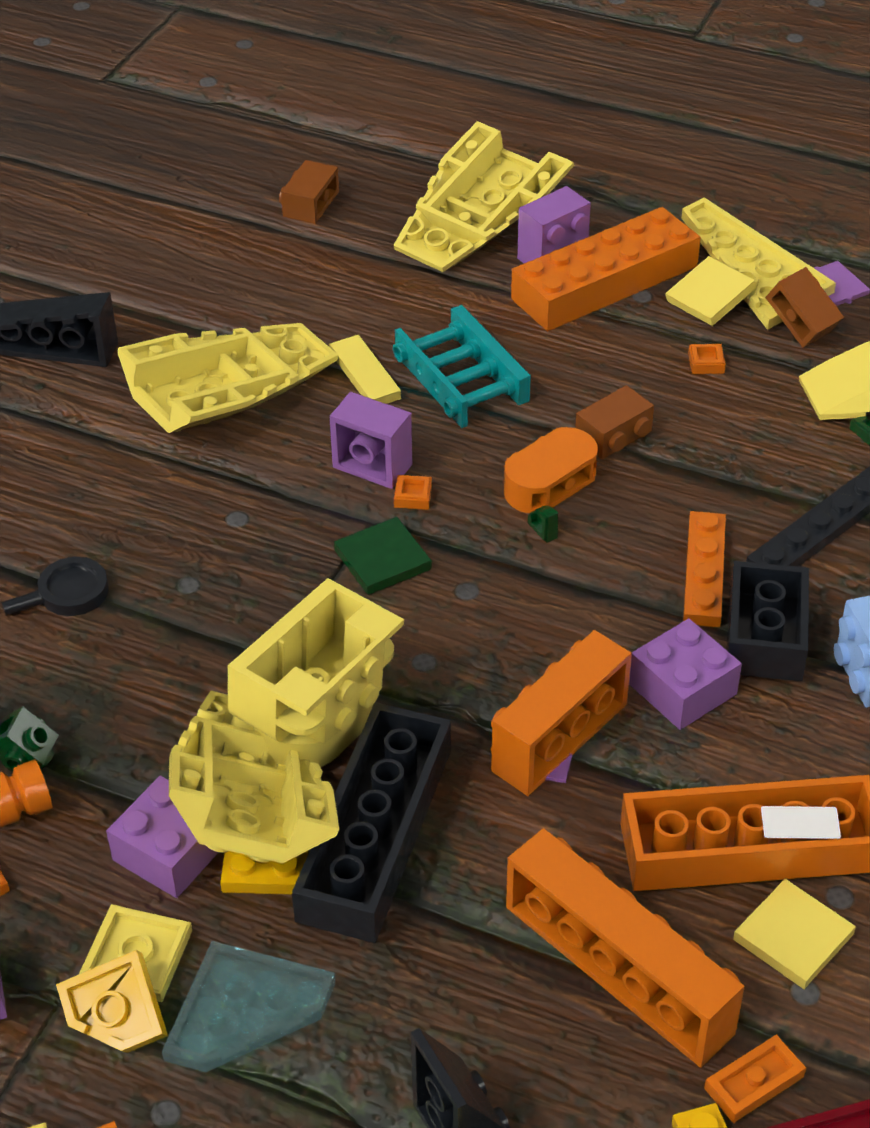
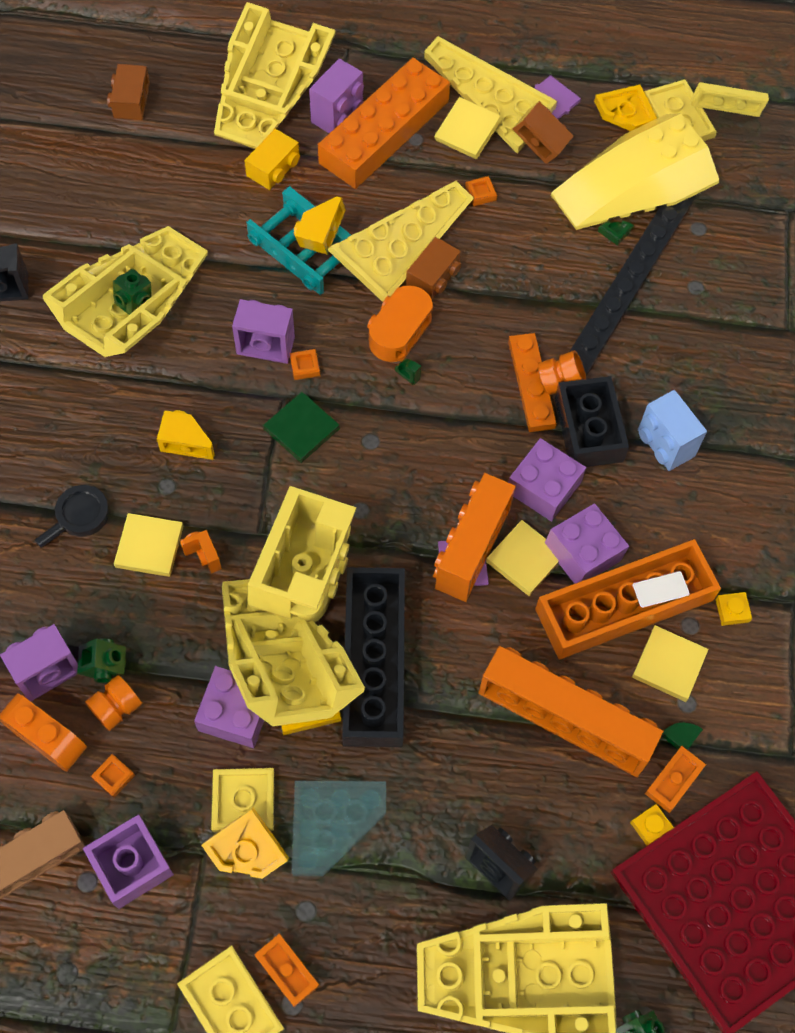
camera: 20 degrees left, 20 degrees up
(138, 639) = (148, 545): none -> light yellow tile
(199, 648) = (202, 544): none -> orange bracket
(226, 366) = (131, 290): none -> dark green brick
(228, 531) = (183, 436): none -> yellow slope
(365, 370) = (232, 260): light yellow tile -> none
(453, 280) = (272, 159): none -> yellow brick
(483, 344) = (320, 225): none -> yellow slope
(554, 388) = (390, 246): none -> light yellow wing
(627, 760) = (523, 558): none -> light yellow tile
(713, 750) = (586, 544): none -> medium lavender brick
(754, 547) = (567, 368): none -> orange wheel
(787, 1023) = (681, 734): none -> dark green tile

